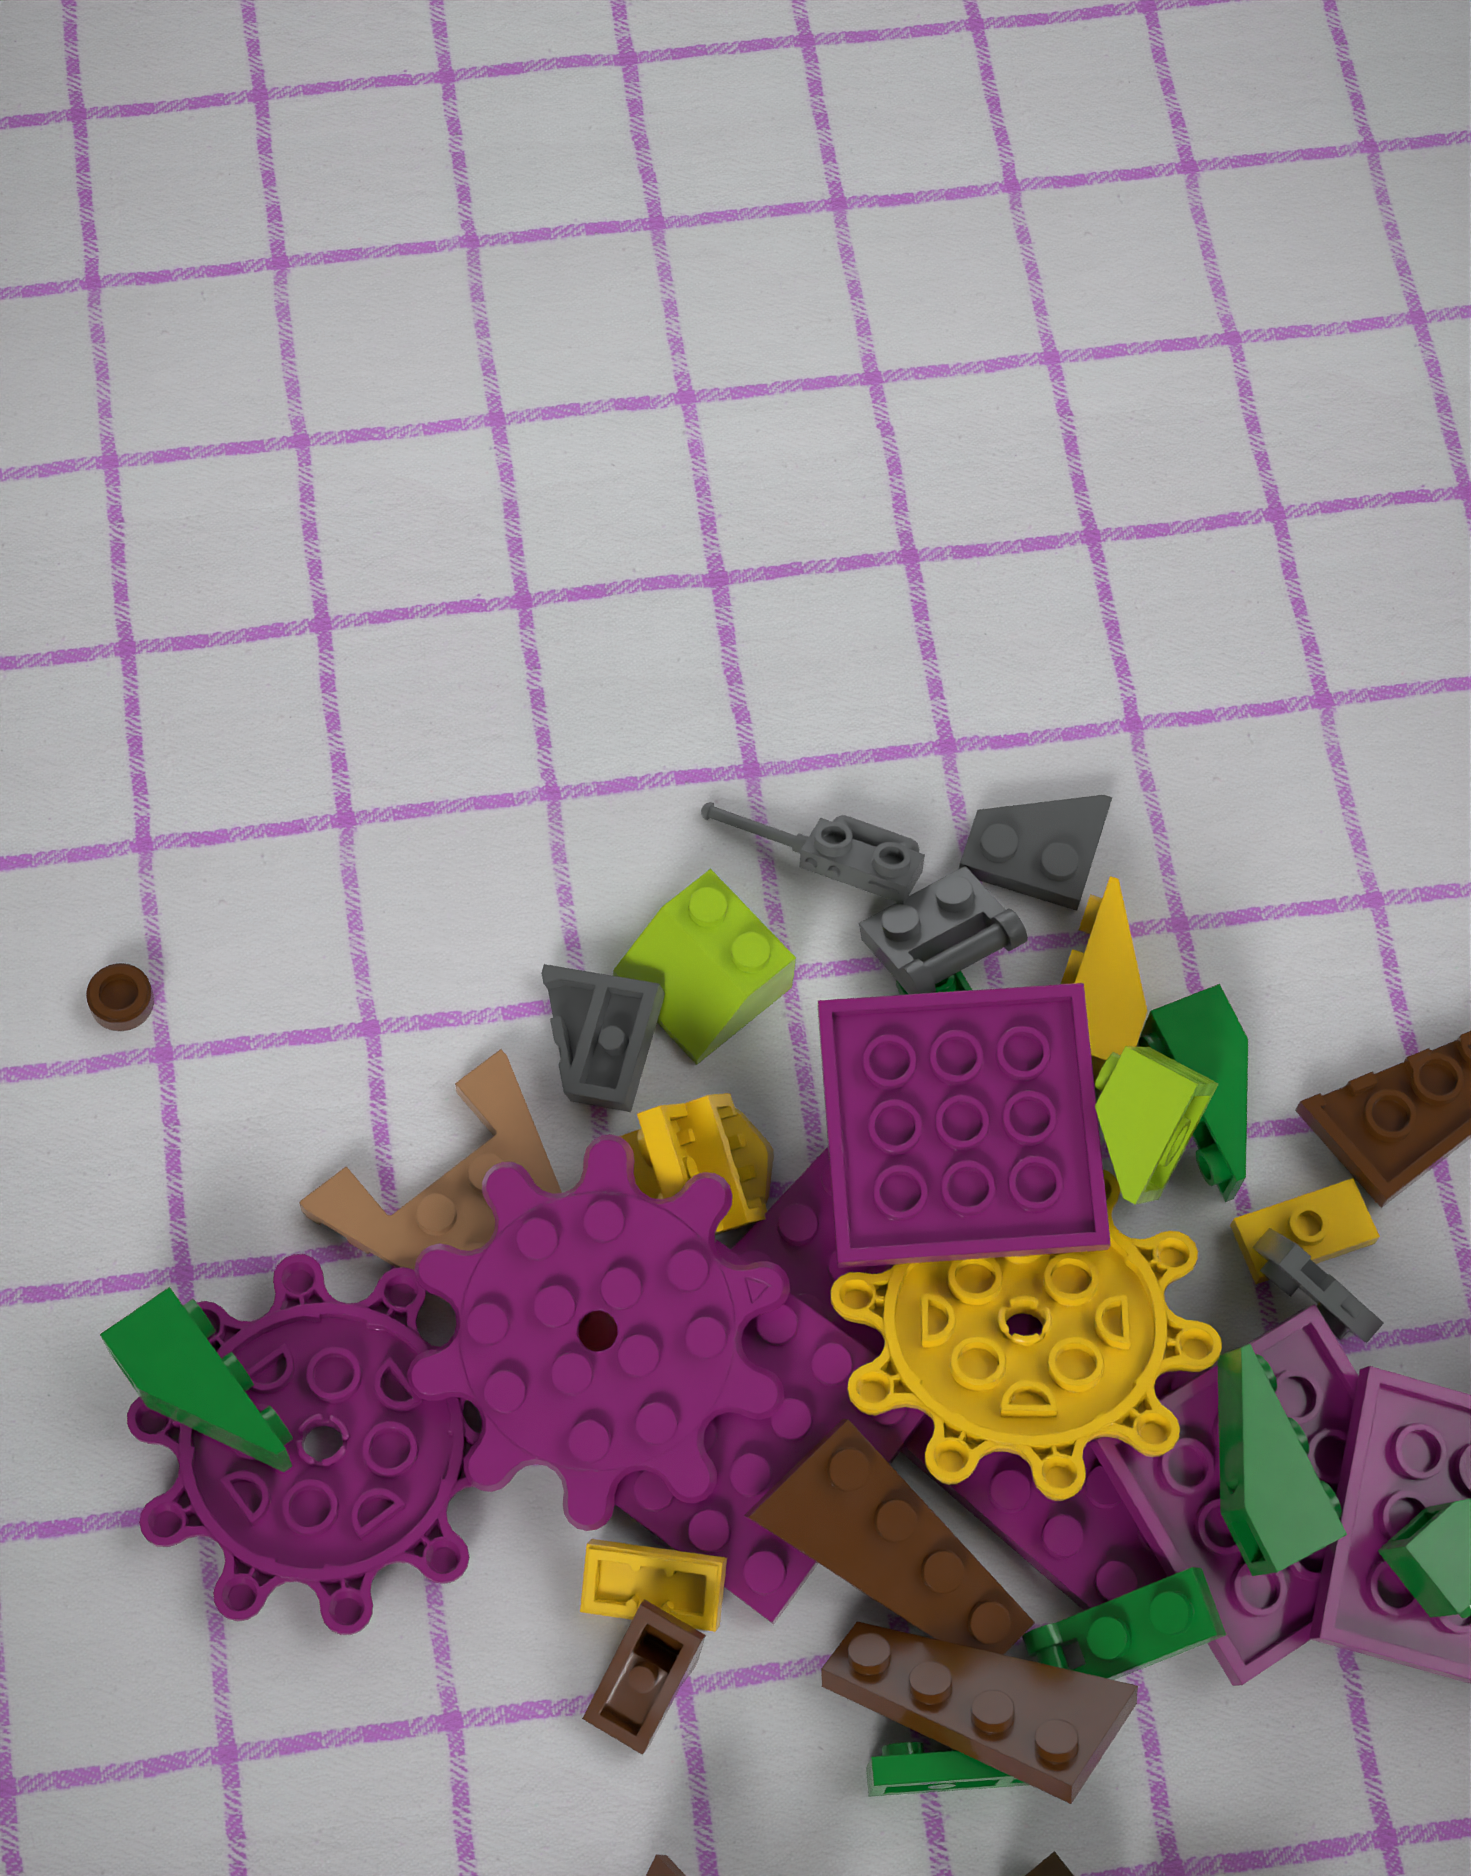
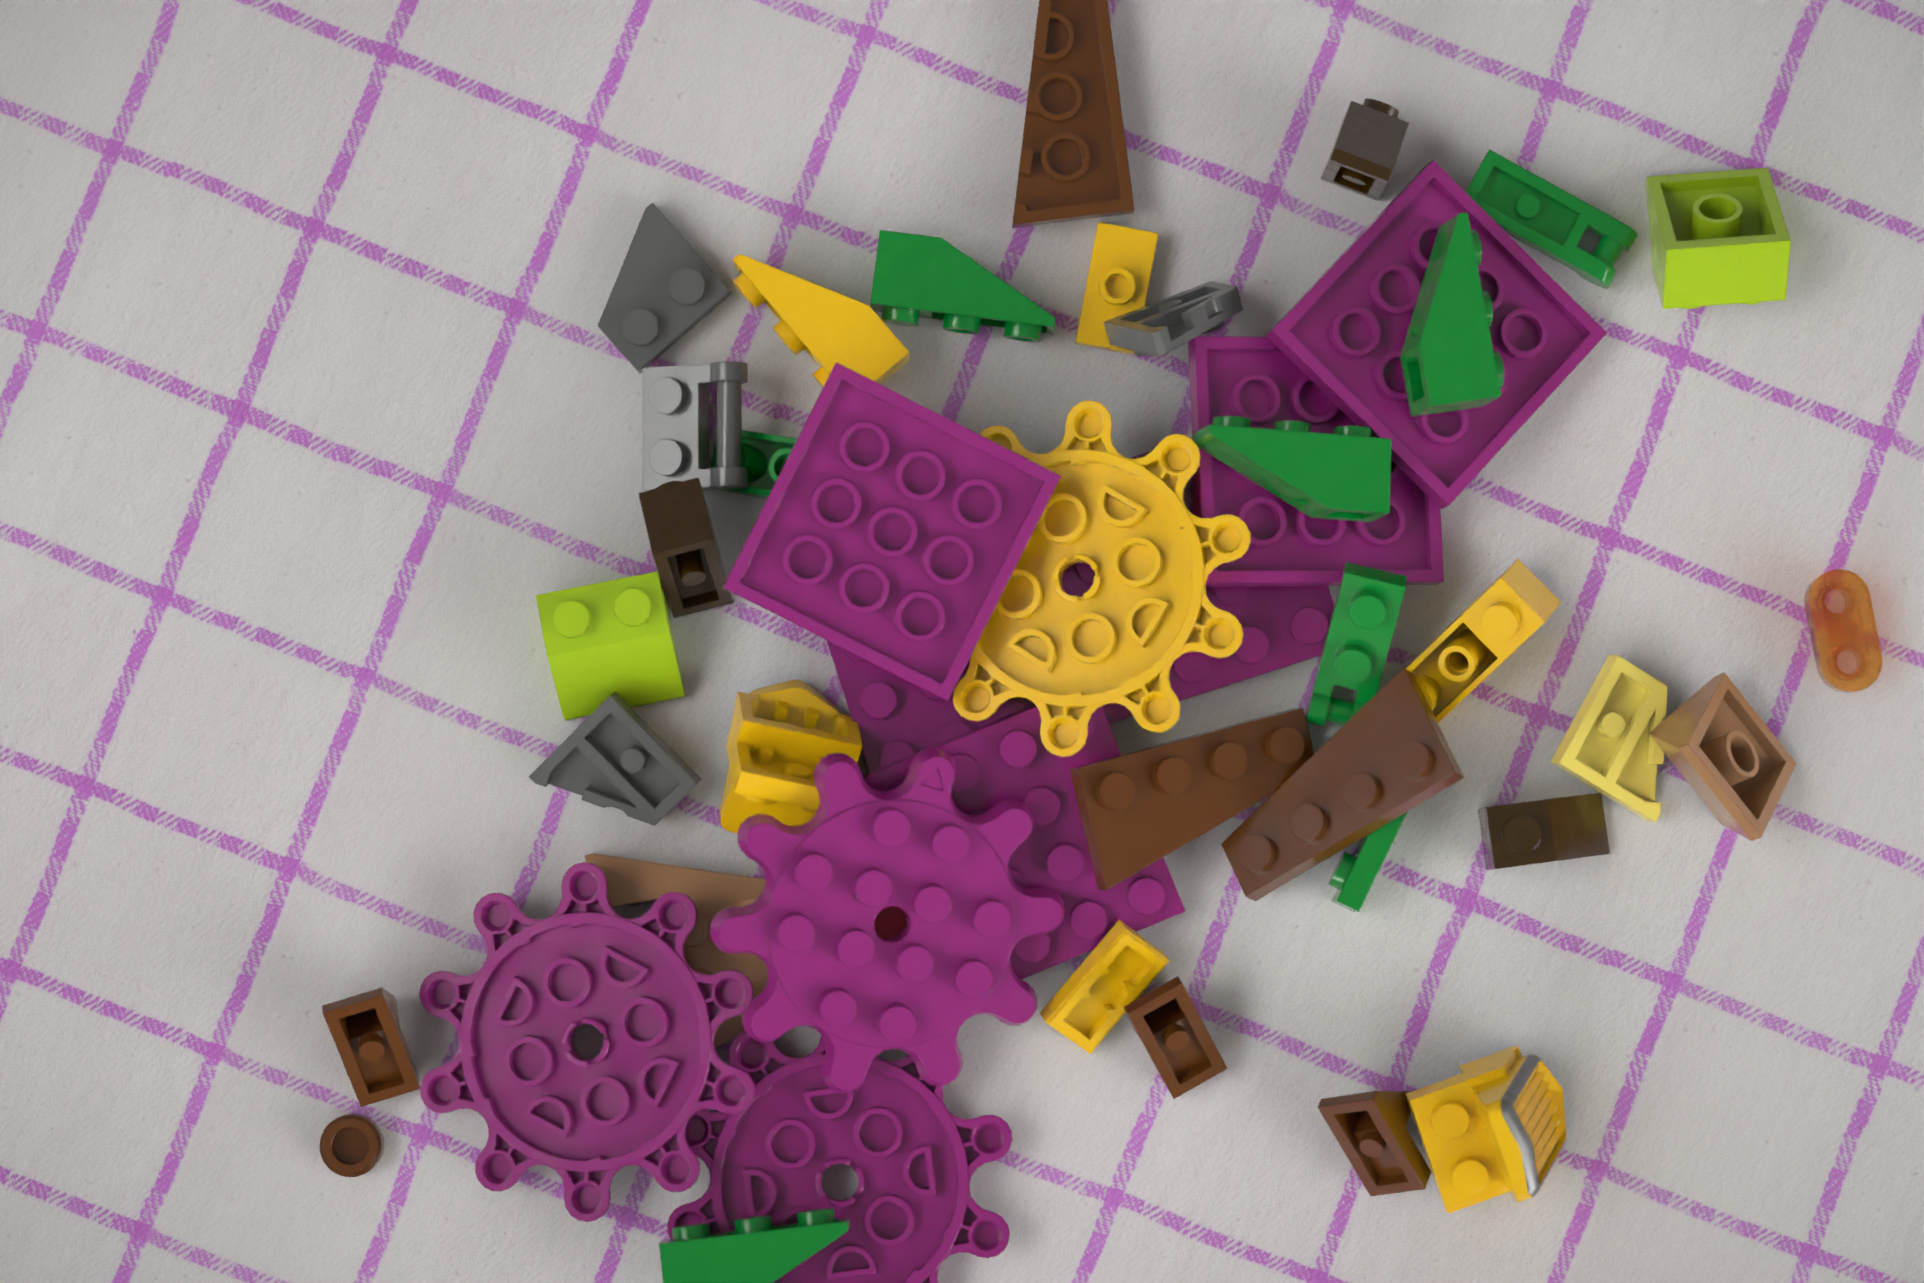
camera: 55 degrees left, 20 degrees up
(222, 953) = (372, 1045): none -> reddish brown slope
(337, 1204) = (521, 1057): none -> magenta plate
(835, 962) = (685, 547): none -> dark brown slope
(845, 852) = (569, 472): dark grey piece -> none
(1148, 1117) = (965, 372): lime slope -> none
(1211, 1758) = (1482, 638): none -> yellow slope

